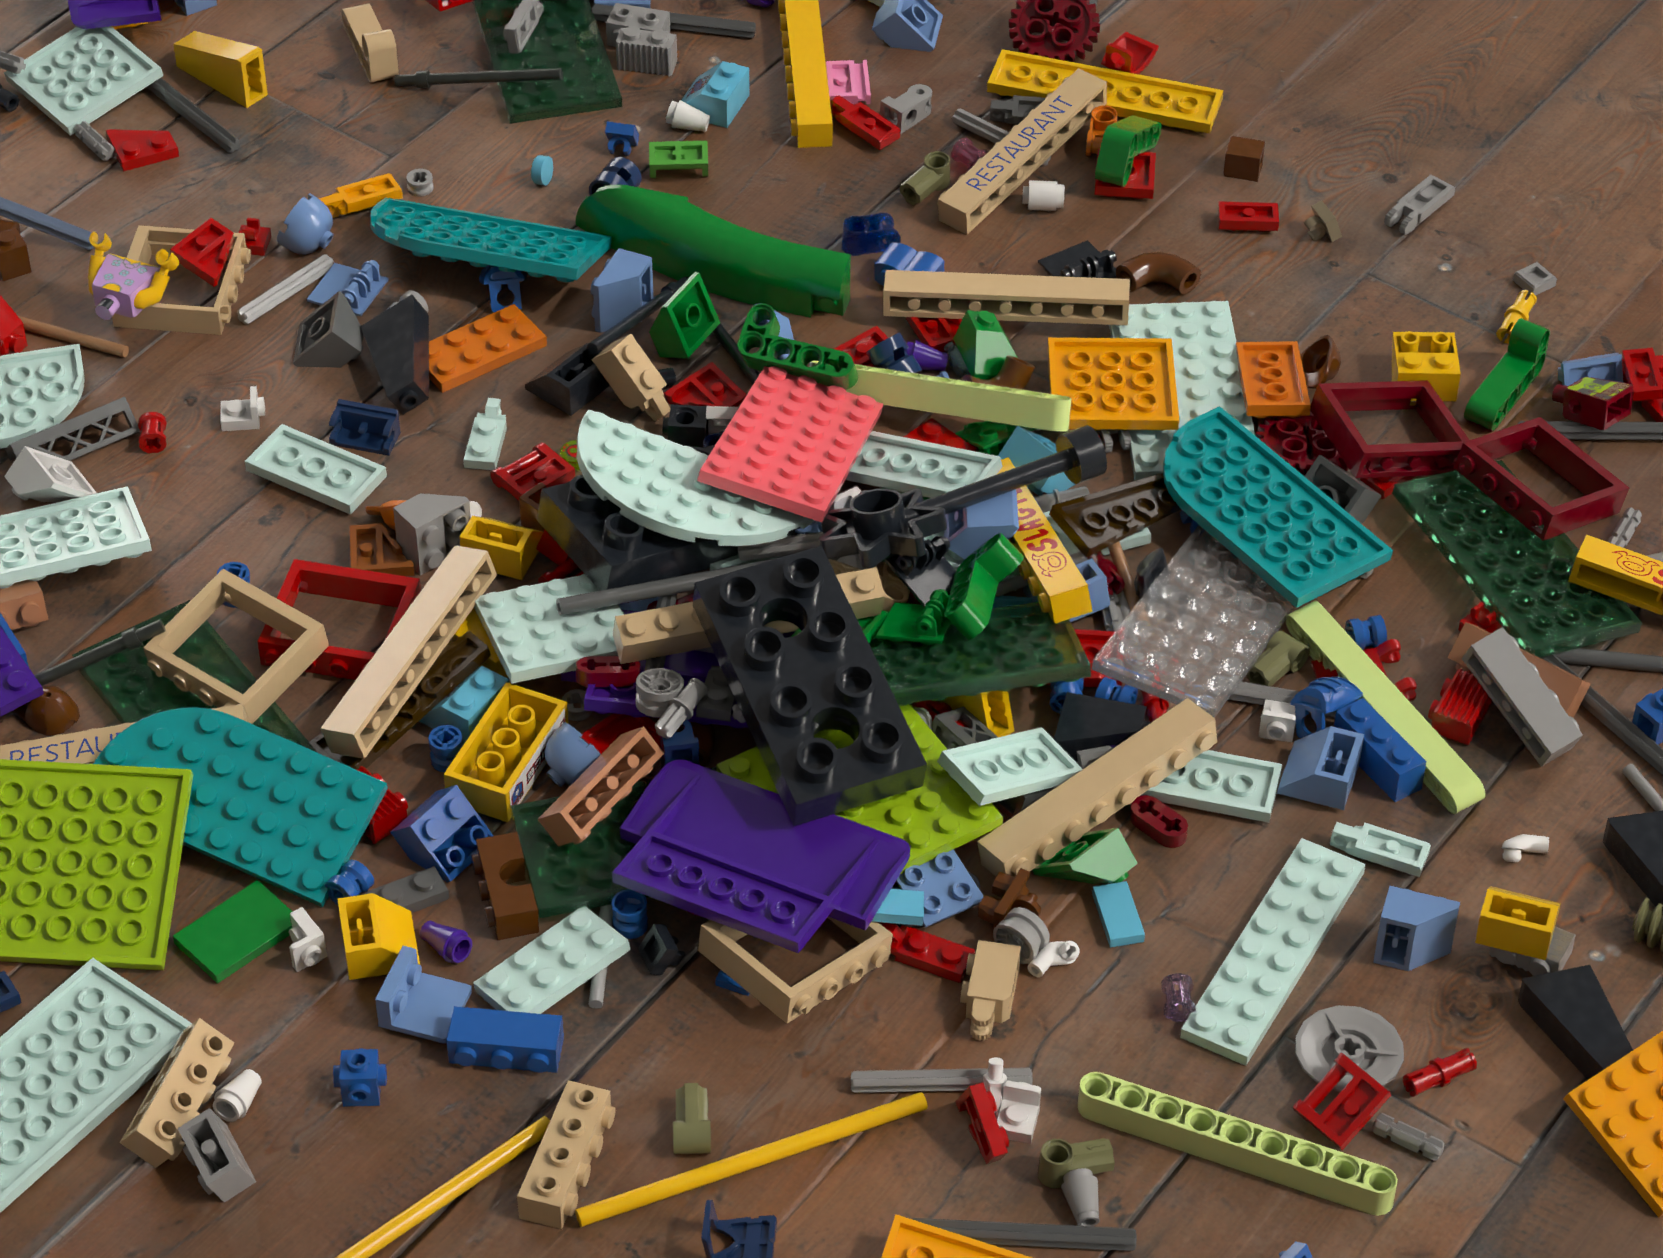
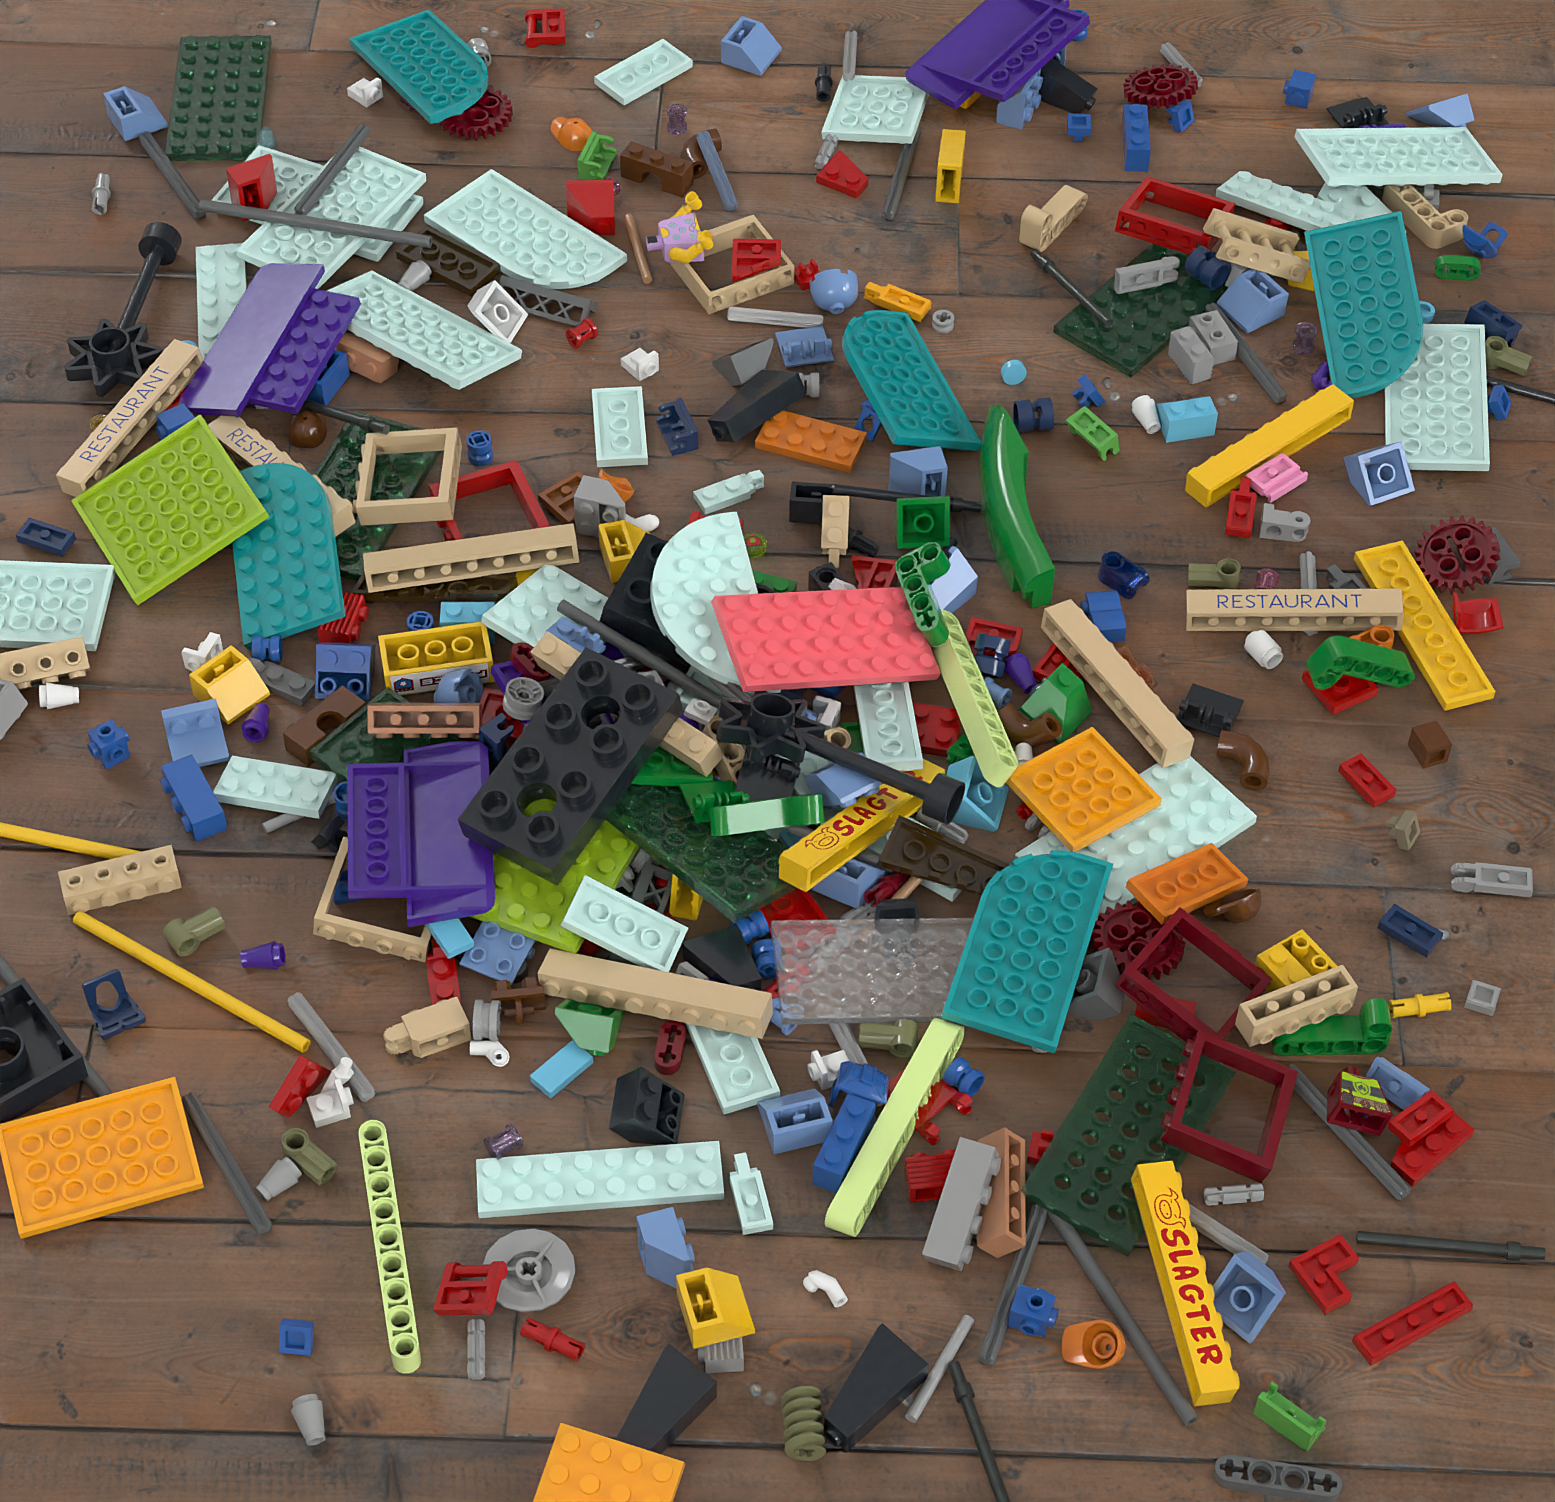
camera: 55 degrees right, 5 degrees up
(235, 931) = (191, 619): green tile -> none
(599, 620) = (576, 636): none -> medium blue plate
(681, 708) = (510, 715): light grey axle -> none
(779, 1077) = (265, 956): none -> dark purple cone
(1224, 870) = (646, 1109): none -> black slope
(1433, 279) = (1410, 930): none -> dark blue plate
(1483, 374) = (1296, 1006): none -> tan brick

